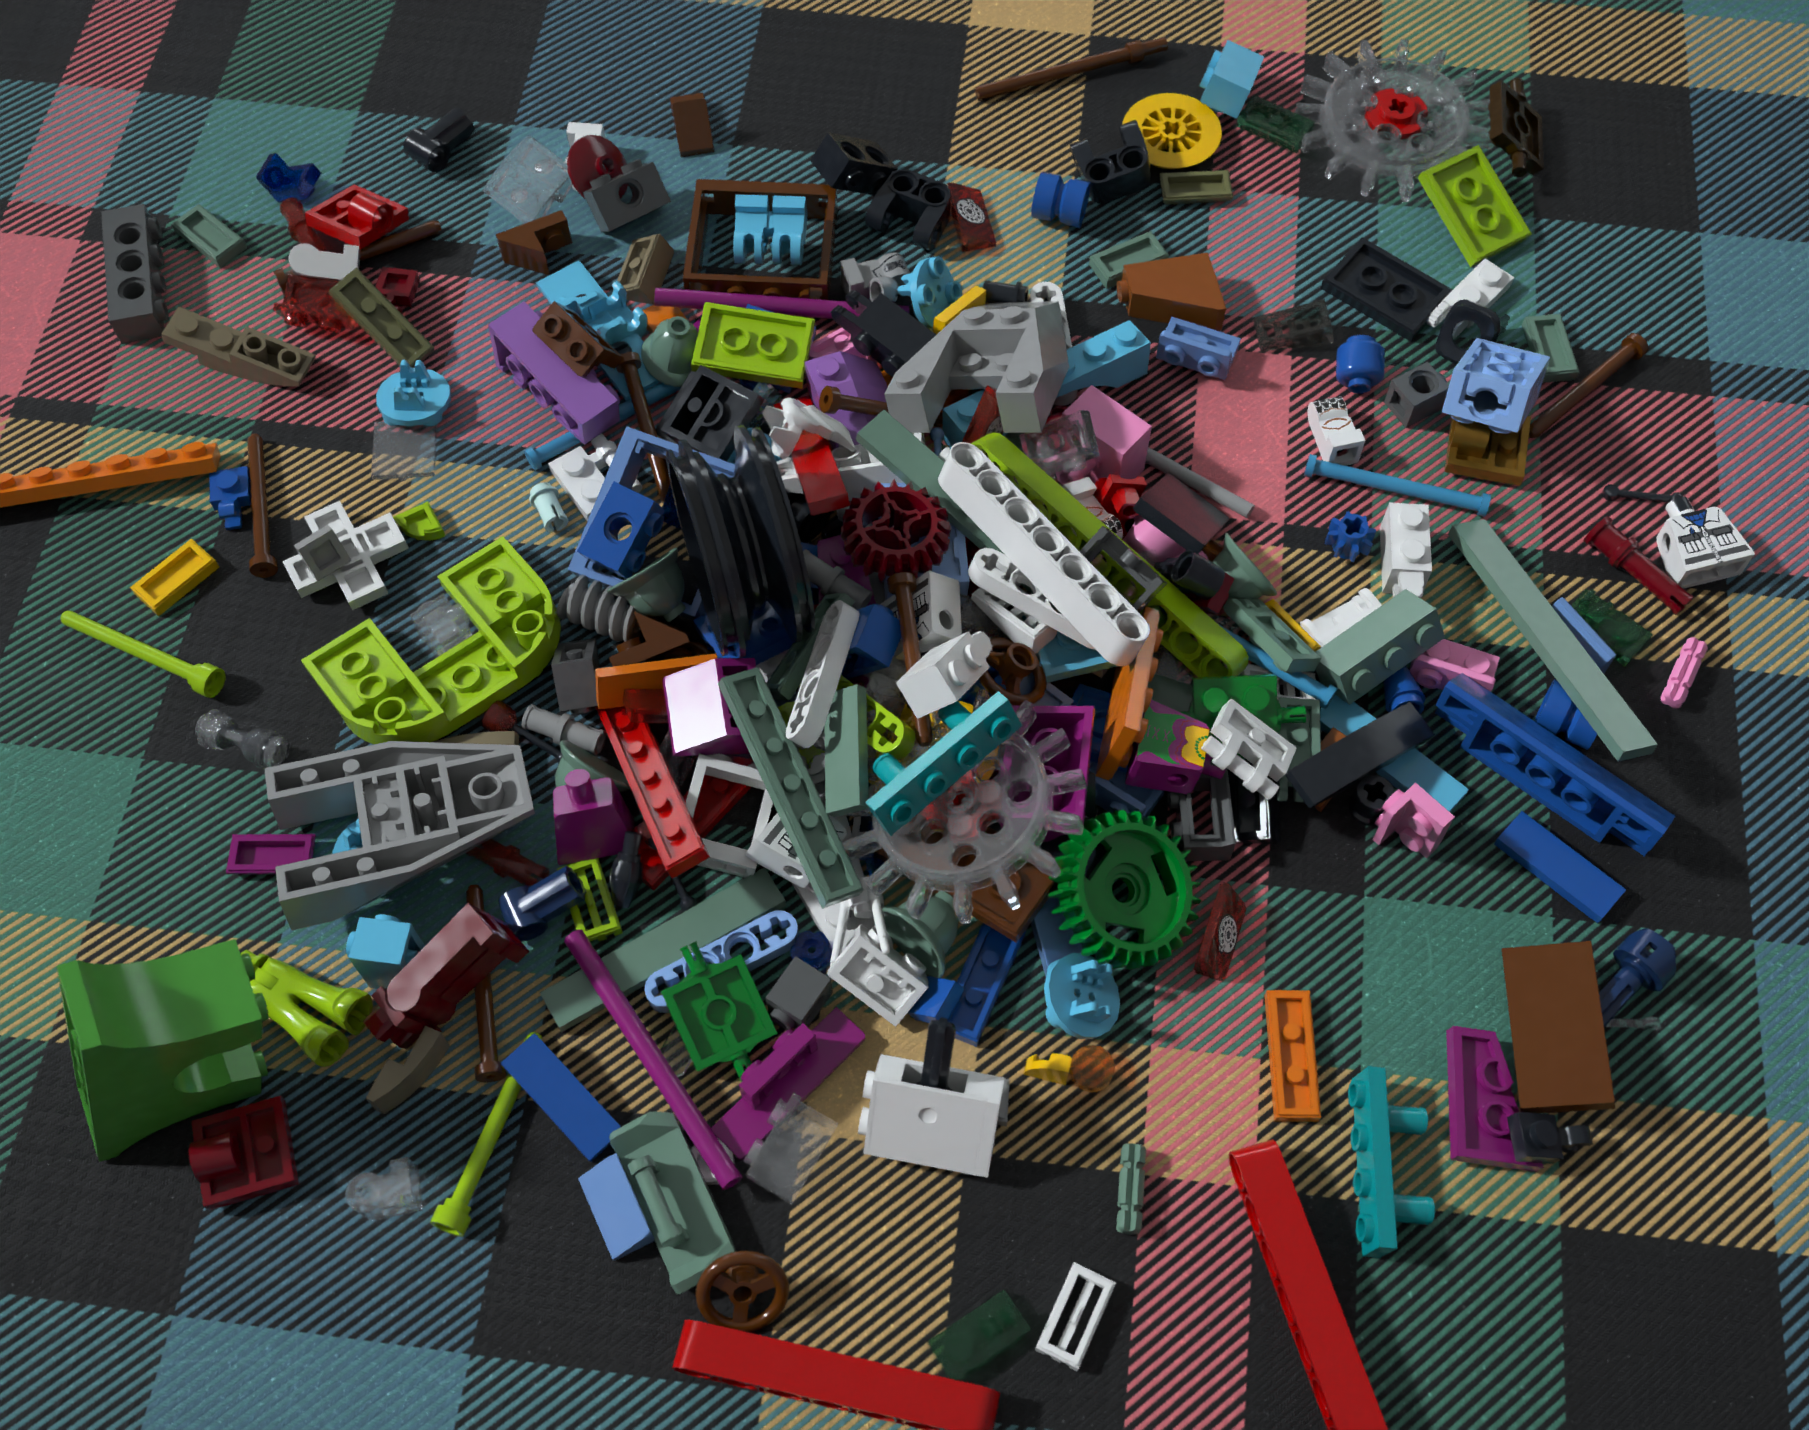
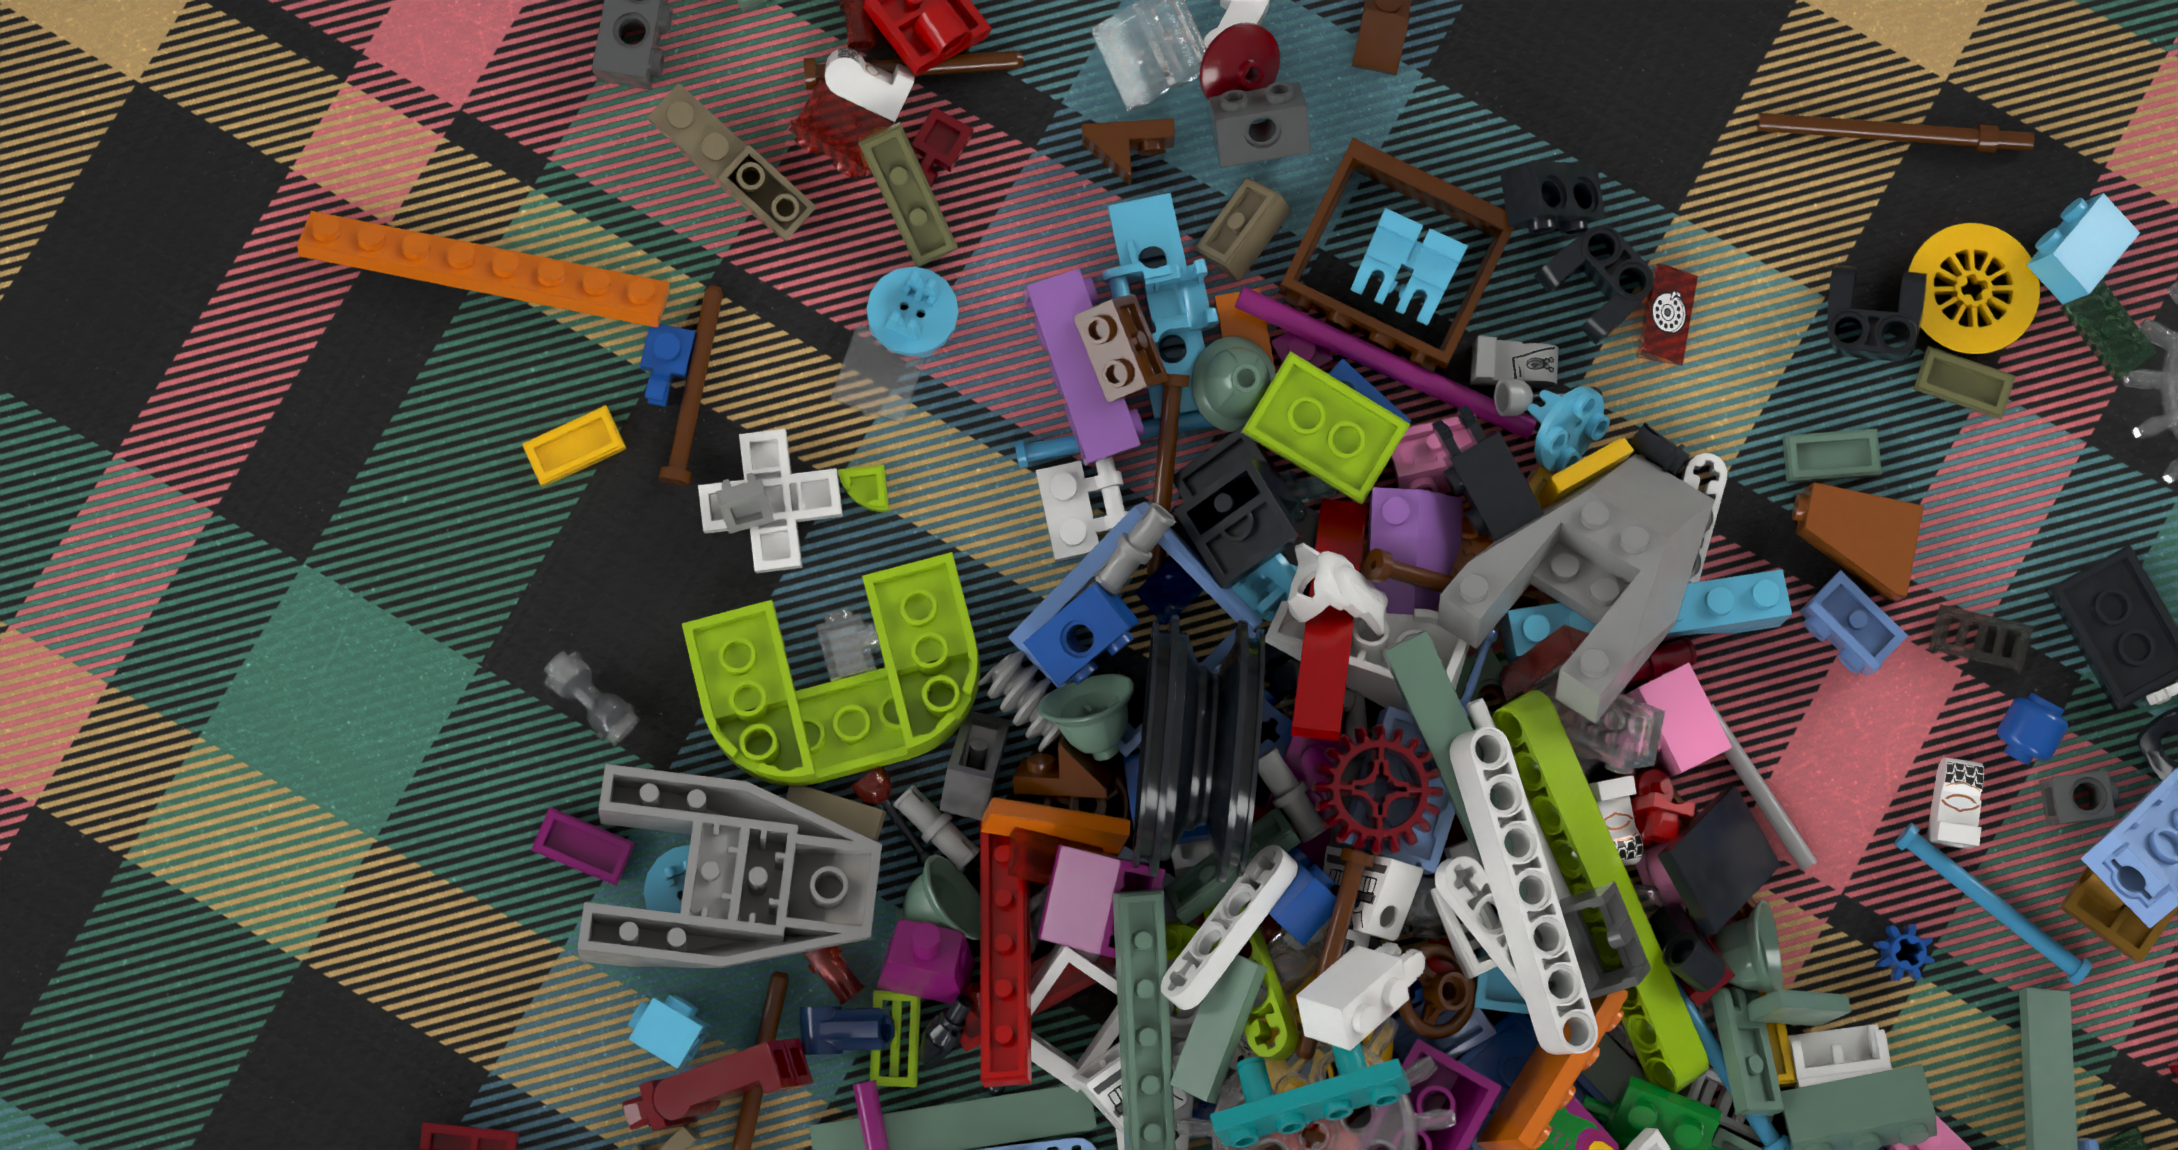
camera: 20 degrees right, 20 degrees up
(161, 1040) = (424, 1067): bright green piece -> none
(202, 678) = (571, 598): lime piece -> none
(288, 986) = (547, 1009): lime piece -> none
(545, 499) = (1016, 527): light aqua pin -> none
(638, 449) = (1134, 548): none -> light grey pin
(1060, 199) = (1785, 344): blue wheel -> none
(1293, 593) = (1798, 1007): none -> sand green tile
(1405, 548) = (1952, 1005): white hinge -> none

